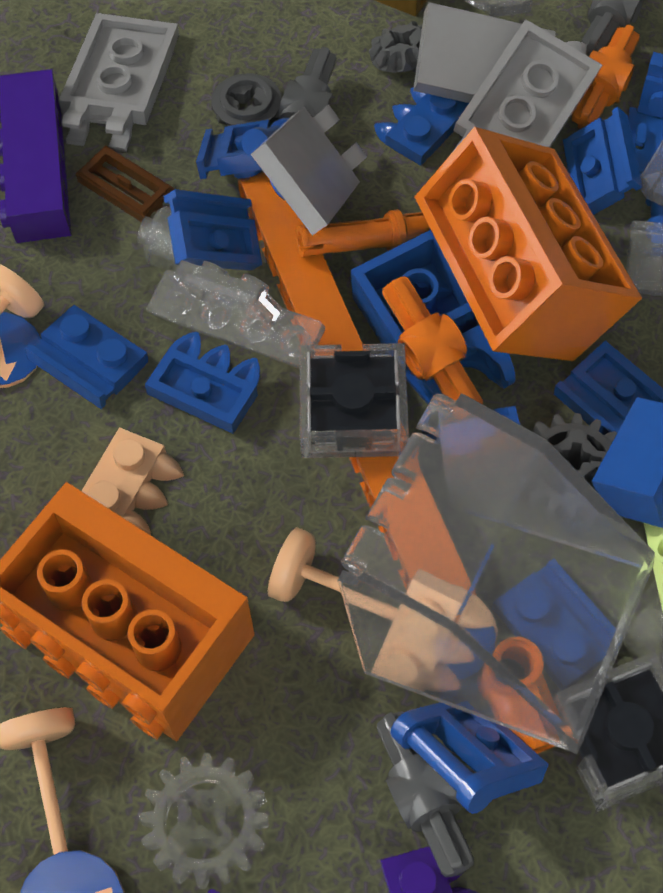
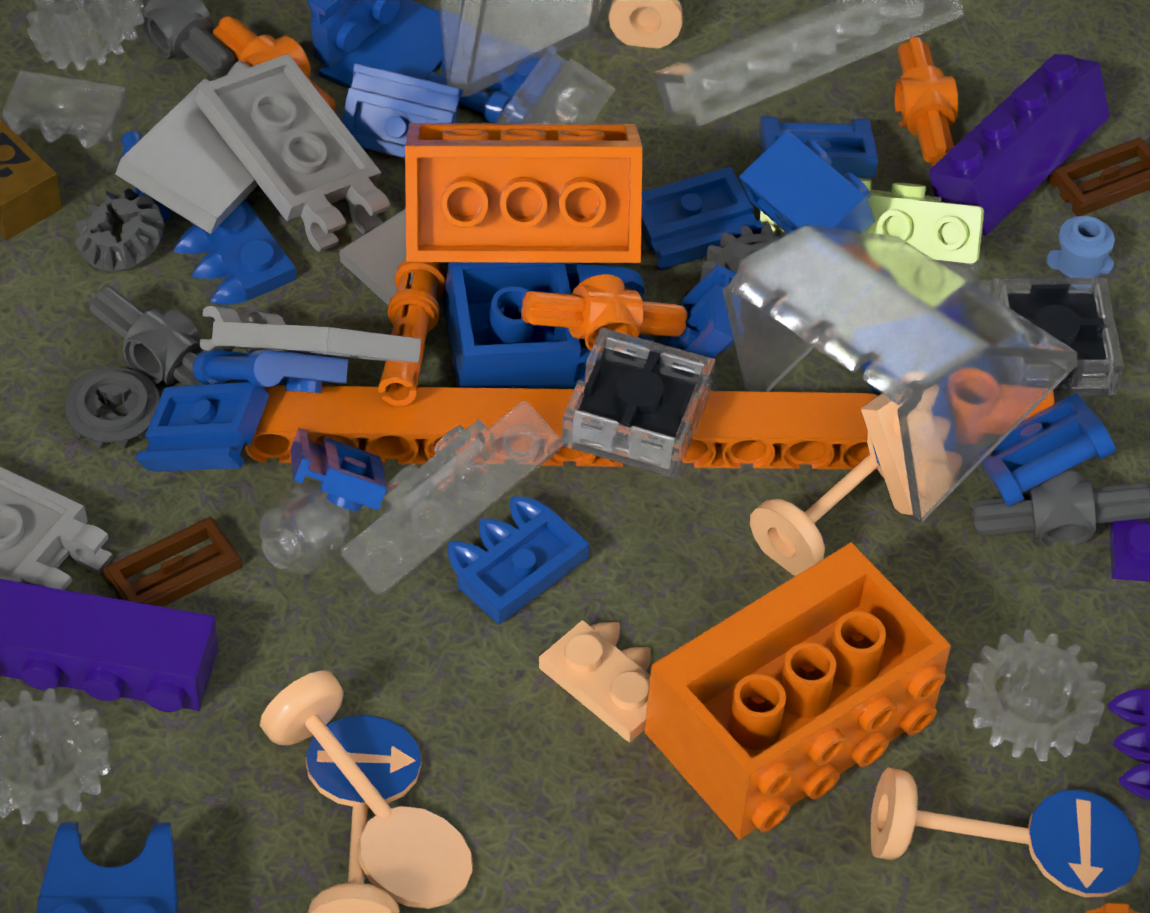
camera: 75 degrees left, 10 degrees down
(87, 356) = (419, 668): blue plate -> none

